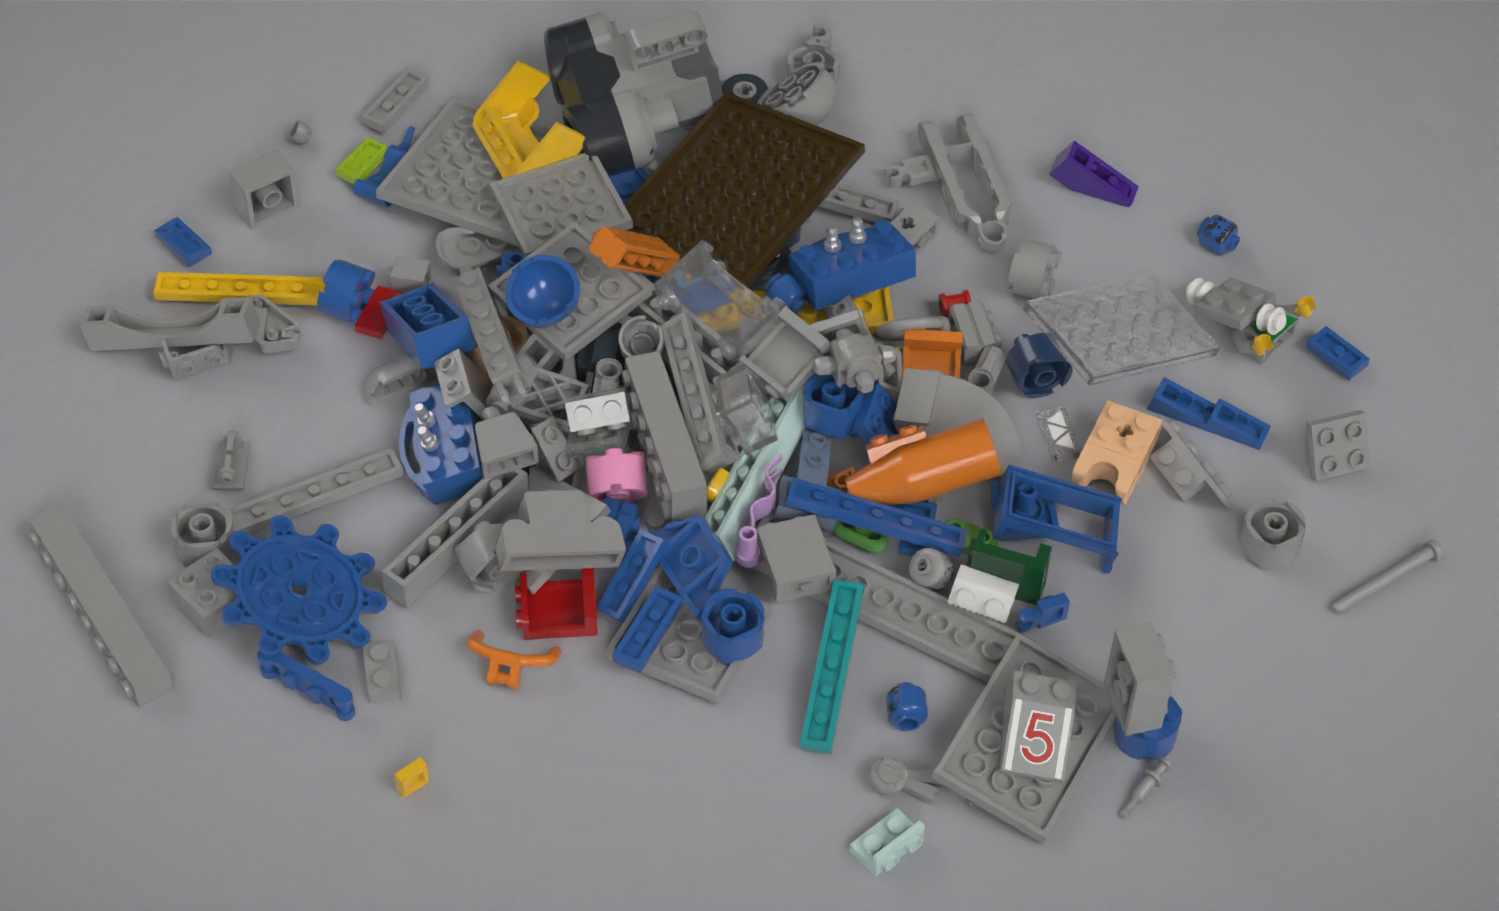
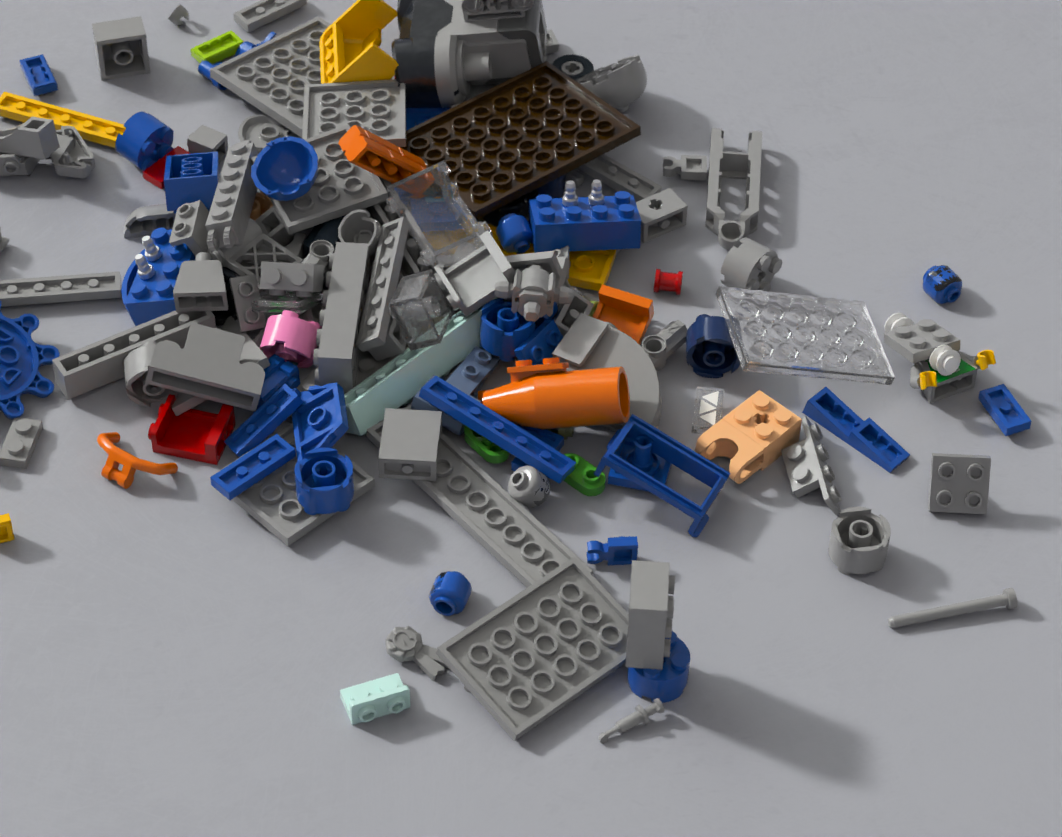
camera: 20 degrees right, 5 degrees down
(715, 483) = (372, 366): yellow tile -> none
(748, 551) = (394, 396): lavender flag -> none
(816, 50) = (652, 54): light grey piece -> none
(832, 667) = (398, 541): teal plate -> none
(895, 329) = (589, 284): light grey piece -> none
(976, 328) = (672, 304): light grey brick -> none
(983, 593) = (563, 518): white brick -> none
(1012, 566) = (595, 506): dark green panel -> none
(1037, 726) = (549, 636): light grey slope -> none
(1091, 176) = (846, 207): dark purple slope -> none

